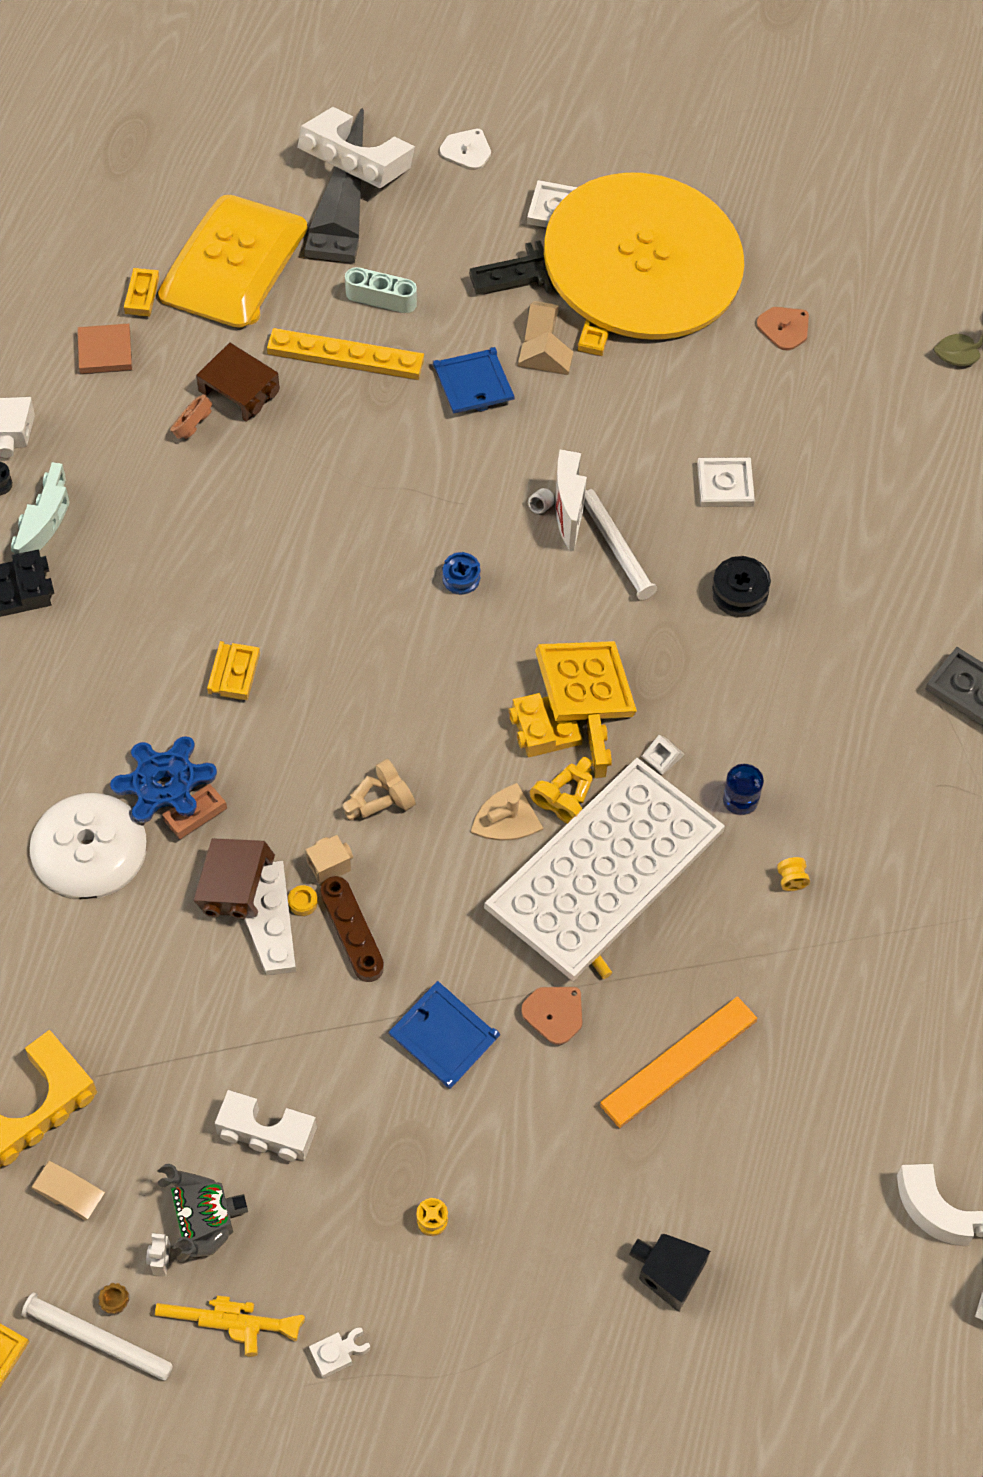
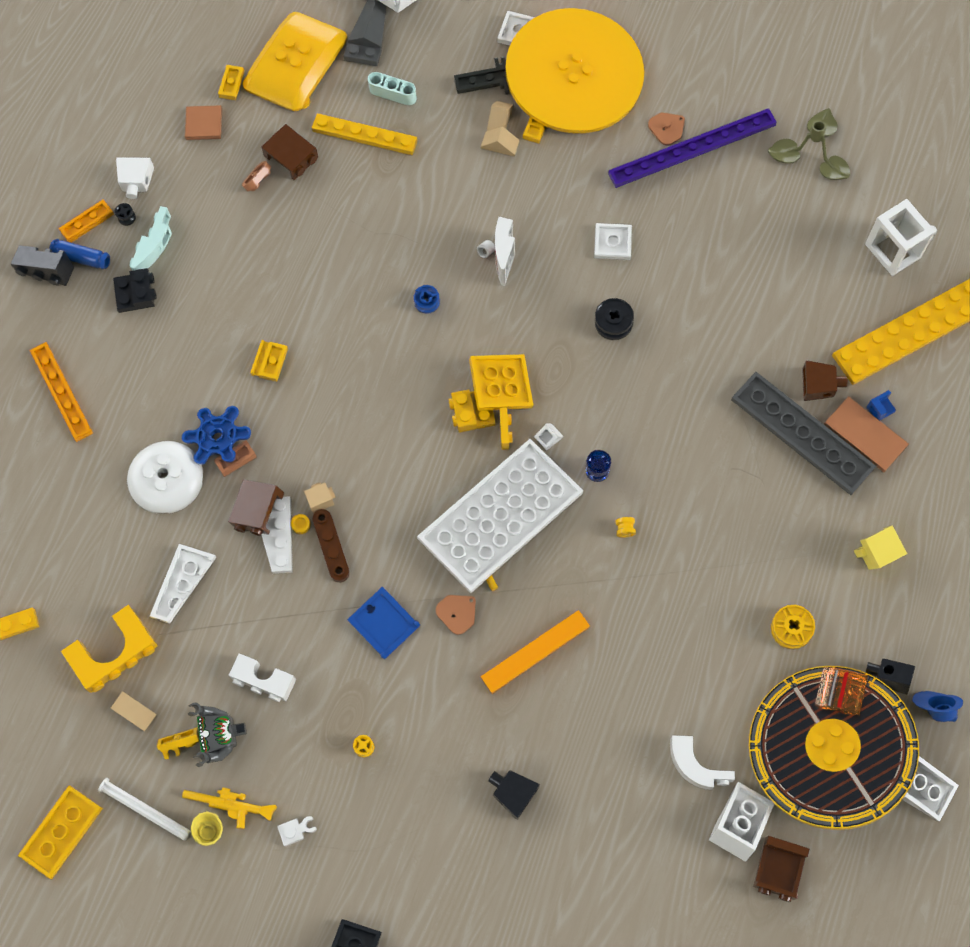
camera: 10 degrees right, 10 degrees up
(113, 1298) = (156, 785): pearl gold piece -> none
(128, 987) = (181, 579): none -> white wing
(156, 1223) = (187, 738): none -> yellow plate
(158, 1254) = (186, 759): white plate -> none
(199, 1356) = (206, 828): none -> light yellow hair
(390, 781) = (362, 443): tan piece -> none
(472, 376) = (449, 155): blue container -> none
(506, 816) = (440, 473): tan shield -> none
(564, 805) = (478, 469): yellow piece -> none
(619, 546) = (534, 284): white axle -> none
(823, 351) = (692, 148): none -> dark purple plate

